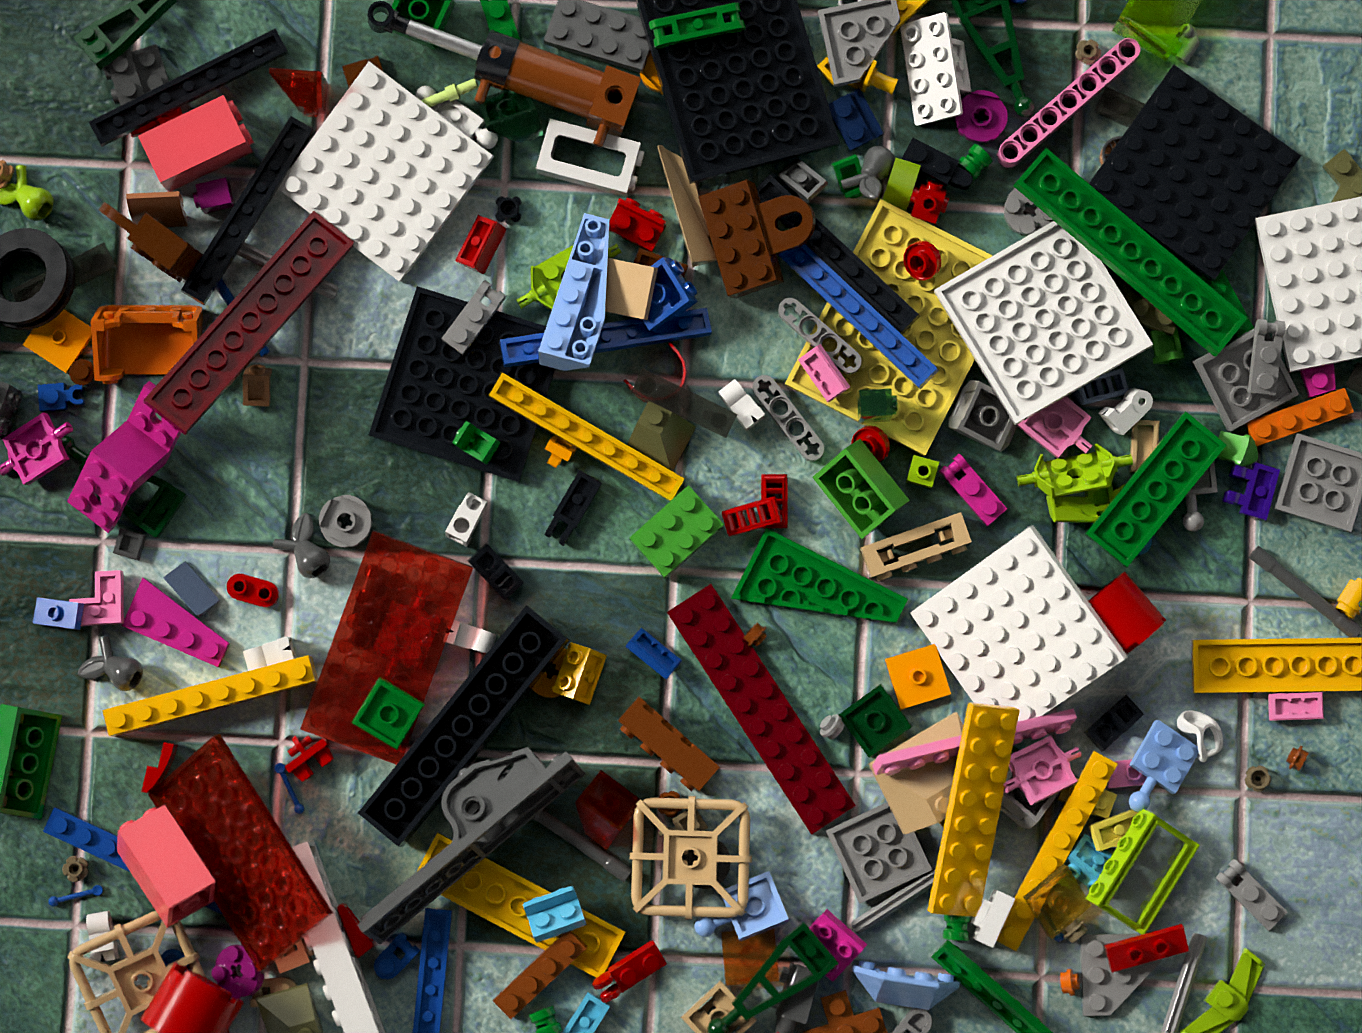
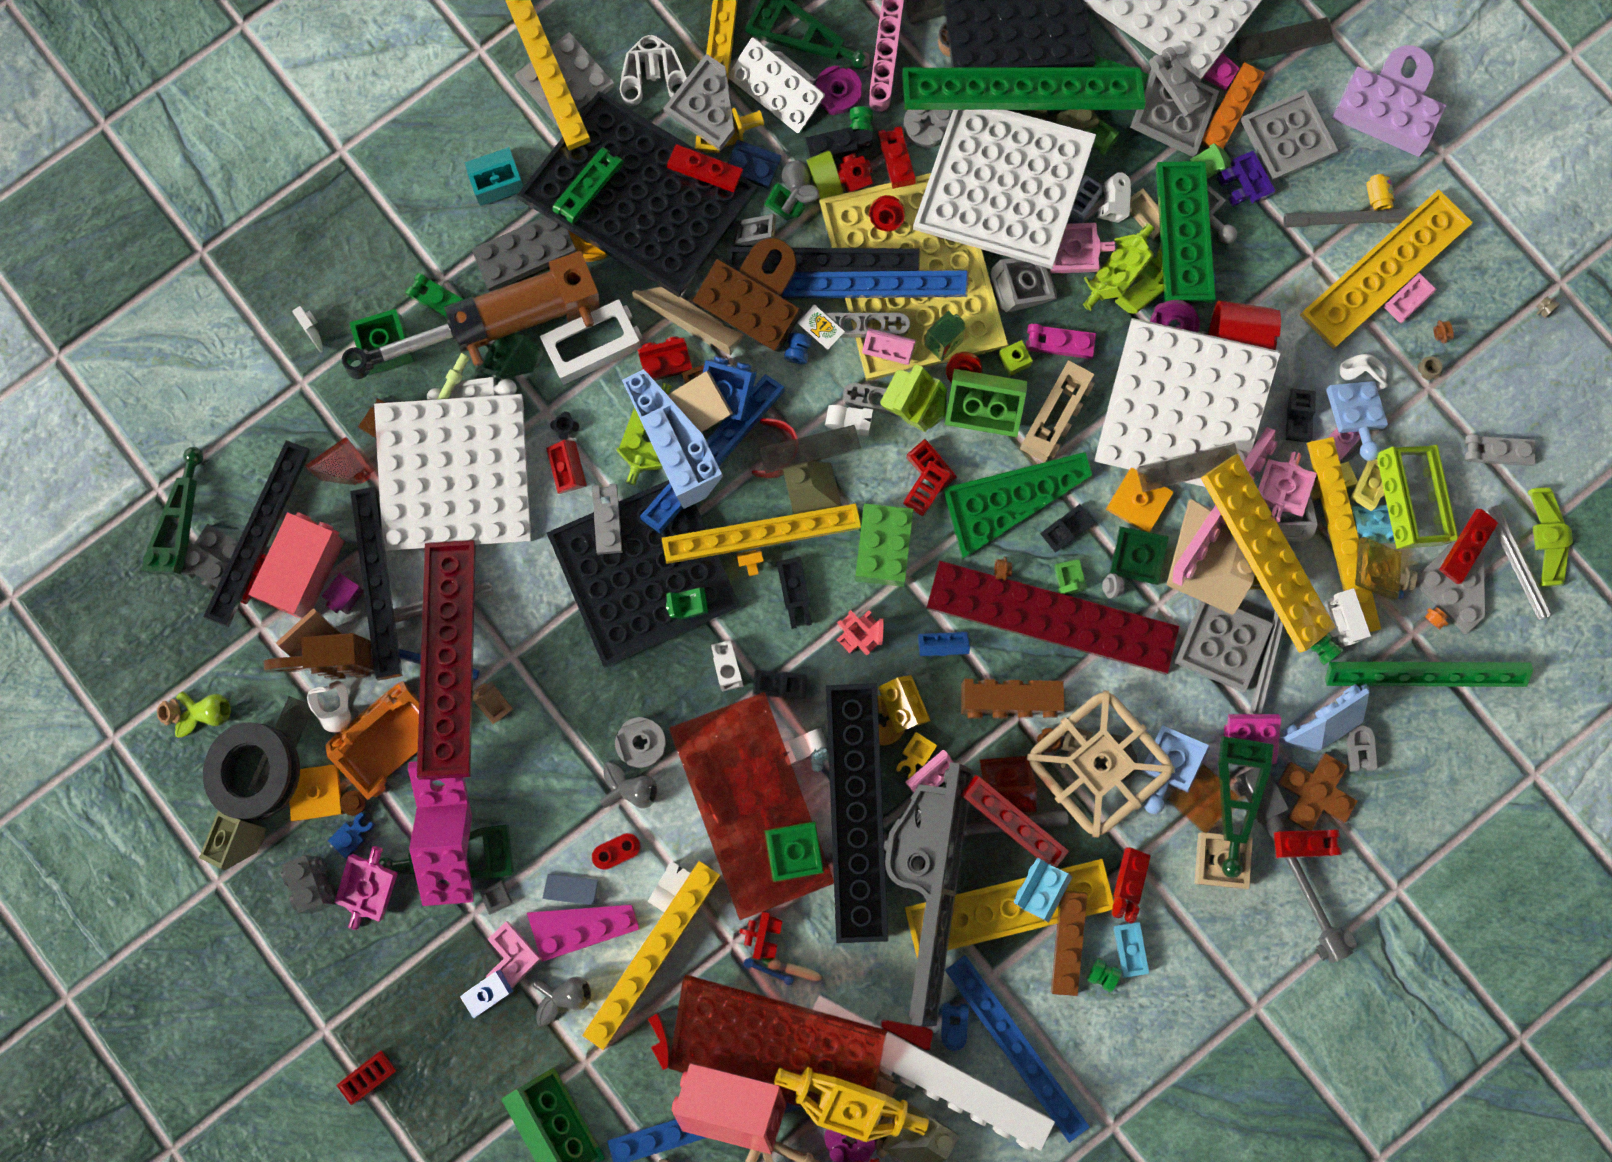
camera: 45 degrees left, 5 degrees down
(123, 294) = (336, 720): none -> white piece
(255, 945) = (850, 1107): none -> yellow plate
(309, 803) = (774, 963): none -> tan piece
(471, 657) = (817, 757): none -> clear light blue arm
(550, 746) = (932, 773): none -> bright pink plate
(556, 720) = (918, 752): none -> yellow plate
(579, 843) = (1013, 822): none -> red plate
(601, 589) = (856, 637): none -> coral piece
(746, 311) = (798, 348): none -> blue wheel
(783, 309) = (821, 327): none -> white sticker
(804, 689) = (1070, 577): none -> bright green tile
(807, 436) = (916, 398): none -> lime piece
(808, 91) = (704, 168): none -> red plate
(838, 648) = (1067, 528): none -> black slope
(973, 682) = (1183, 467): none -> clear smoke plate
(976, 218) = (896, 158): none -> red plate
(1086, 548) = (1179, 311): none -> magenta plate

